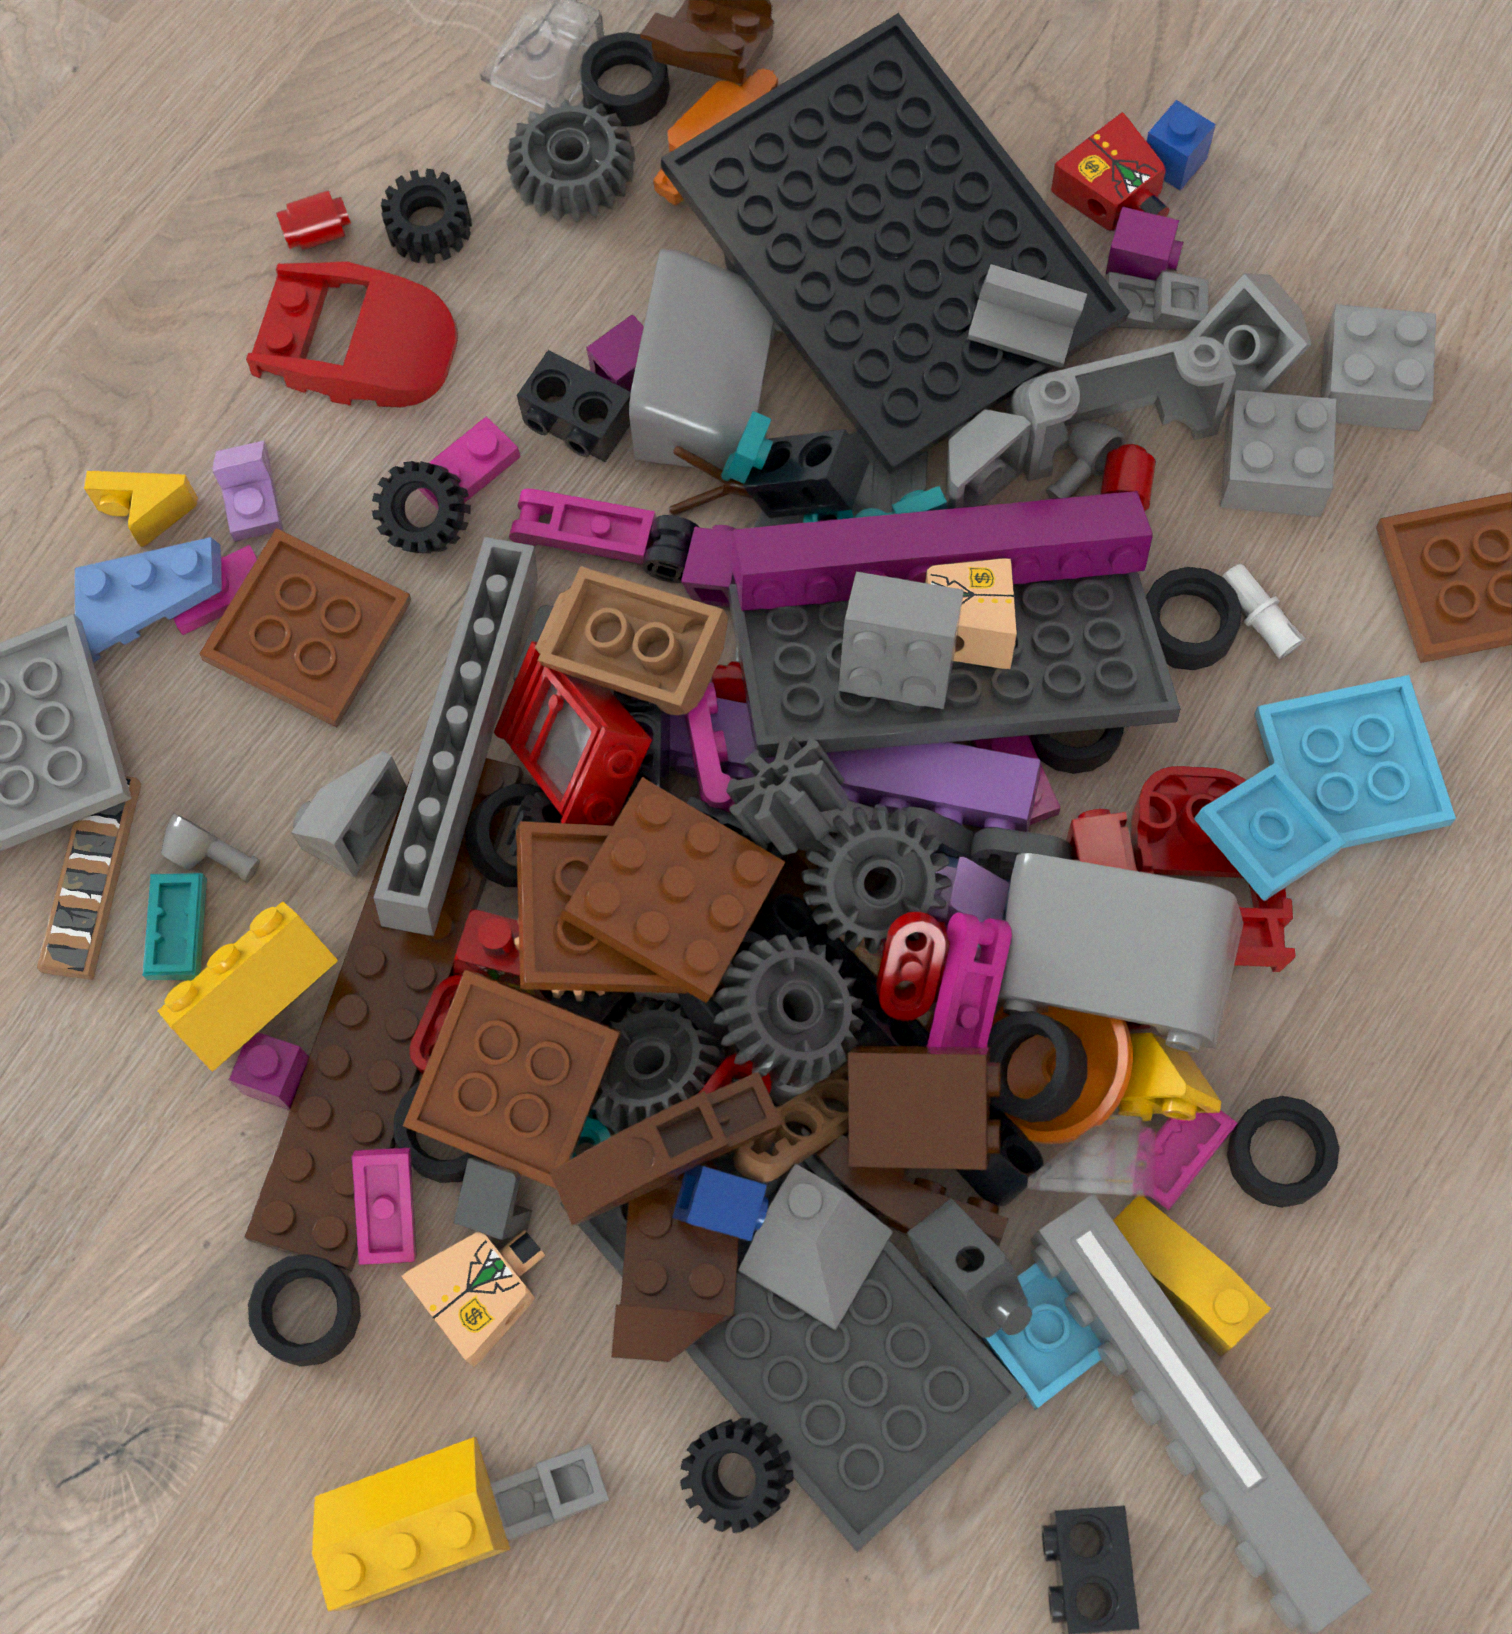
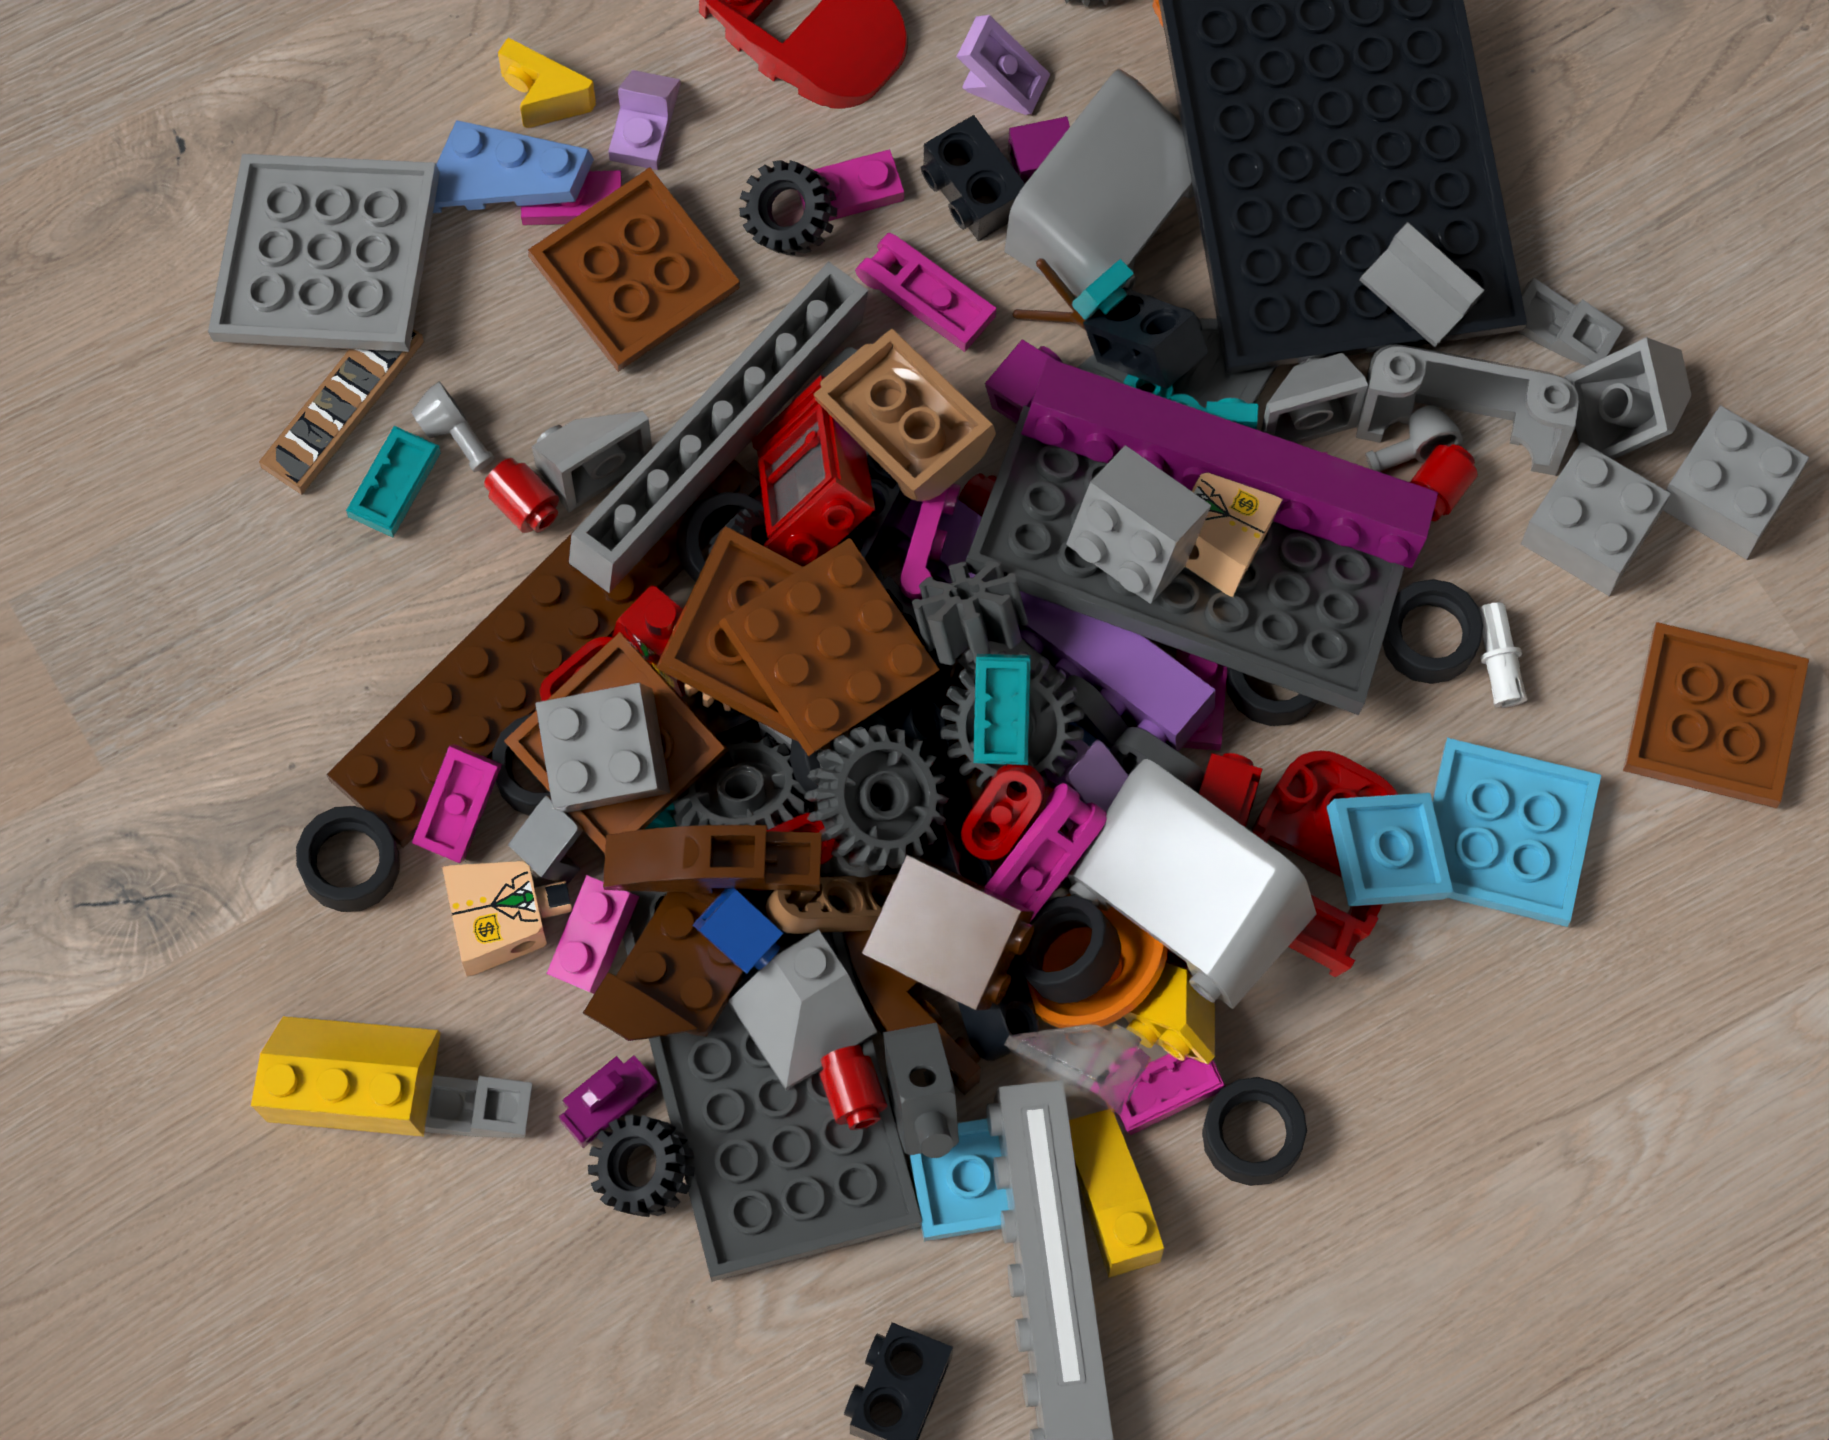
camera: 20 degrees right, 0 degrees up
(246, 985) = (430, 558): yellow slope -> none
(269, 1070) = (415, 642): magenta brick -> none
(304, 883) = (522, 496): none -> red brick
(503, 1089) = (602, 747): none -> light grey brick
(549, 300) = (1001, 67): none -> lavender slope
(576, 1272) = (592, 935): none -> plate
(667, 1423) = (605, 1098): none -> magenta piece
(670, 548) = (987, 352): black wheel -> none
(868, 871) = (1002, 709): none -> teal plate
(900, 1298) = (852, 1087): none -> red brick
(1110, 173) = (1586, 189): red torso -> none
(1144, 245) = (1578, 267): magenta brick -> none
(1181, 142) = (1664, 186): blue brick -> none

